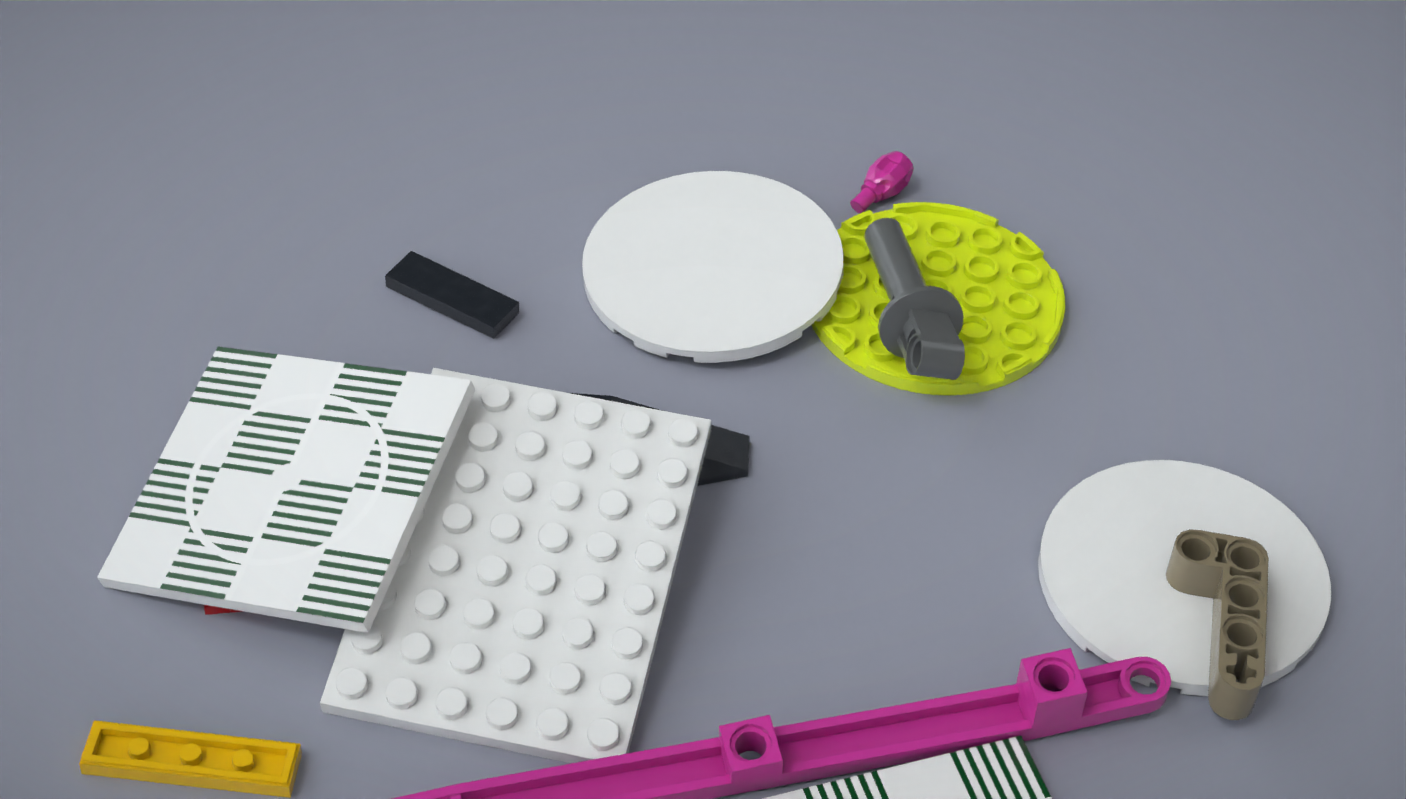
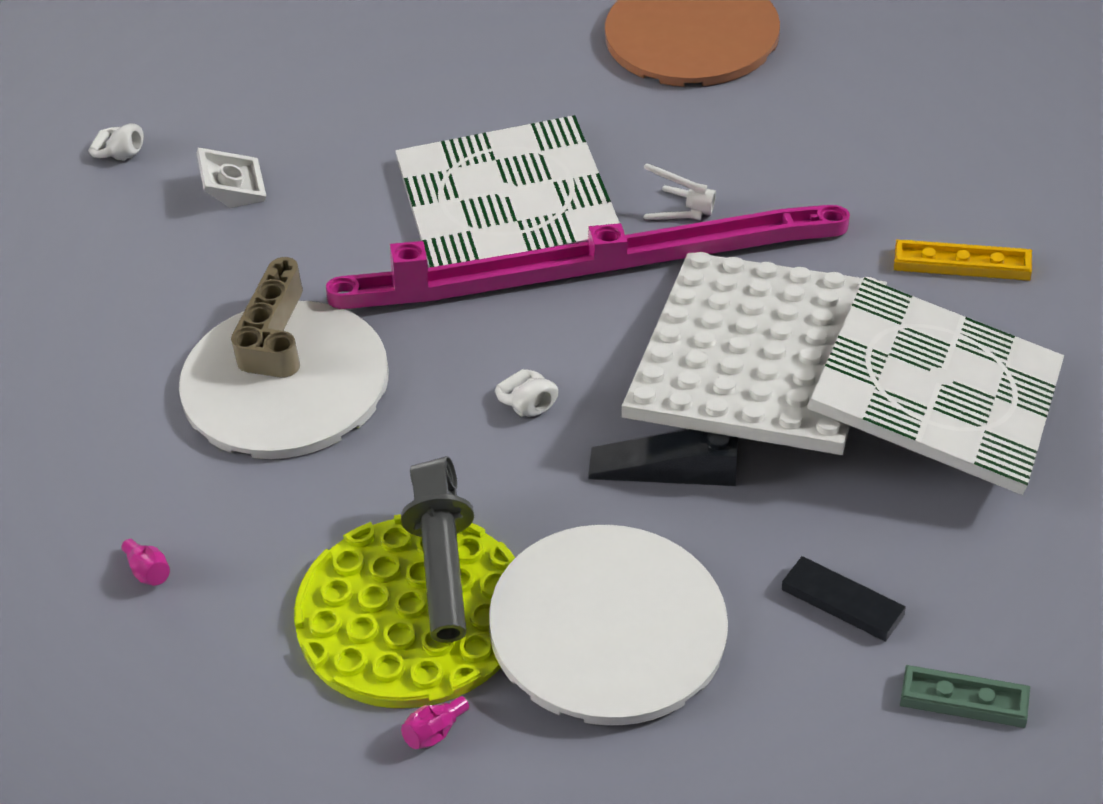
camera: 170 degrees left, 0 degrees up
(340, 206) = (965, 696): none -> sand green tile
(834, 529) = (530, 394): none -> white piece
(1253, 332) = (146, 562): none -> dark pink piece

